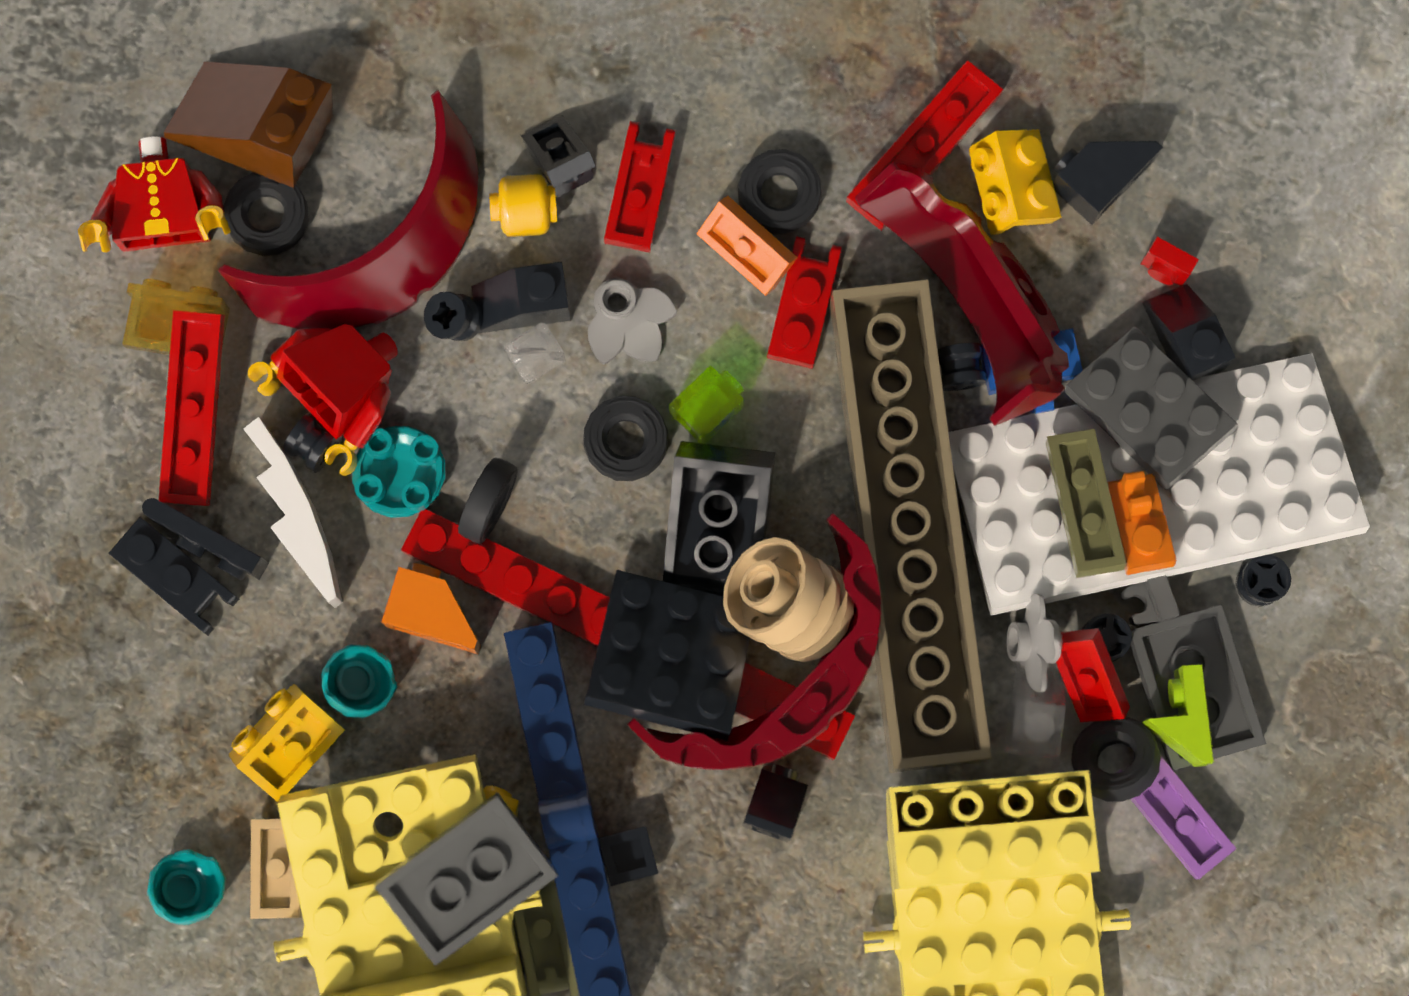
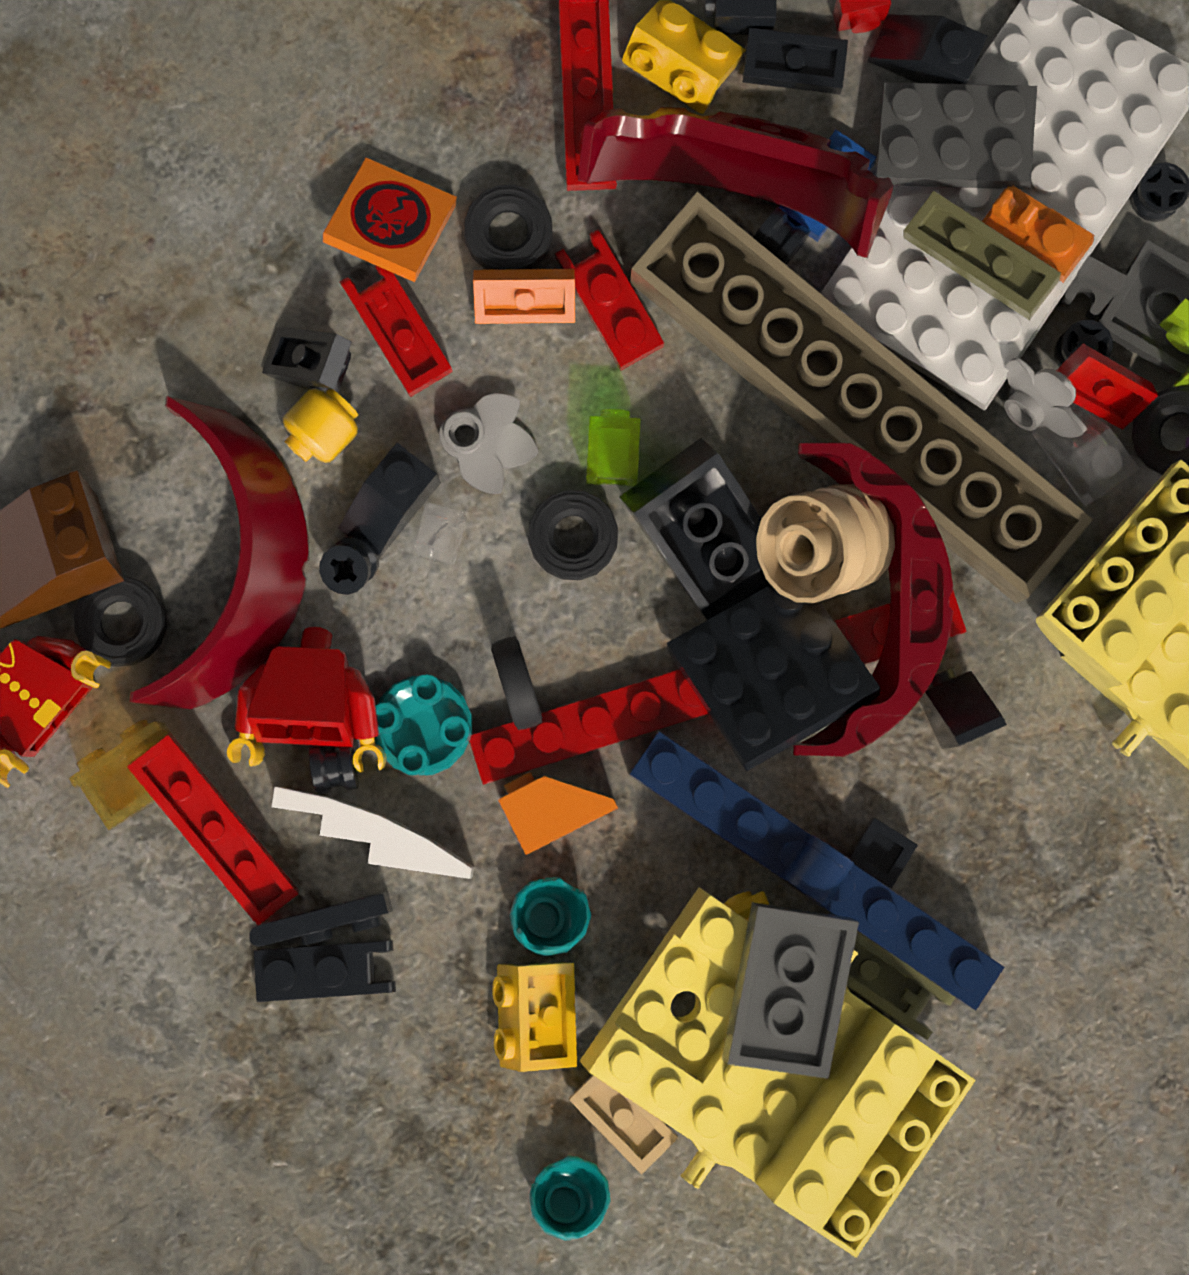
camera: 45 degrees left, 5 degrees up
(704, 110) = (389, 219): none -> tile
(1088, 256) = (795, 61): none -> black plate

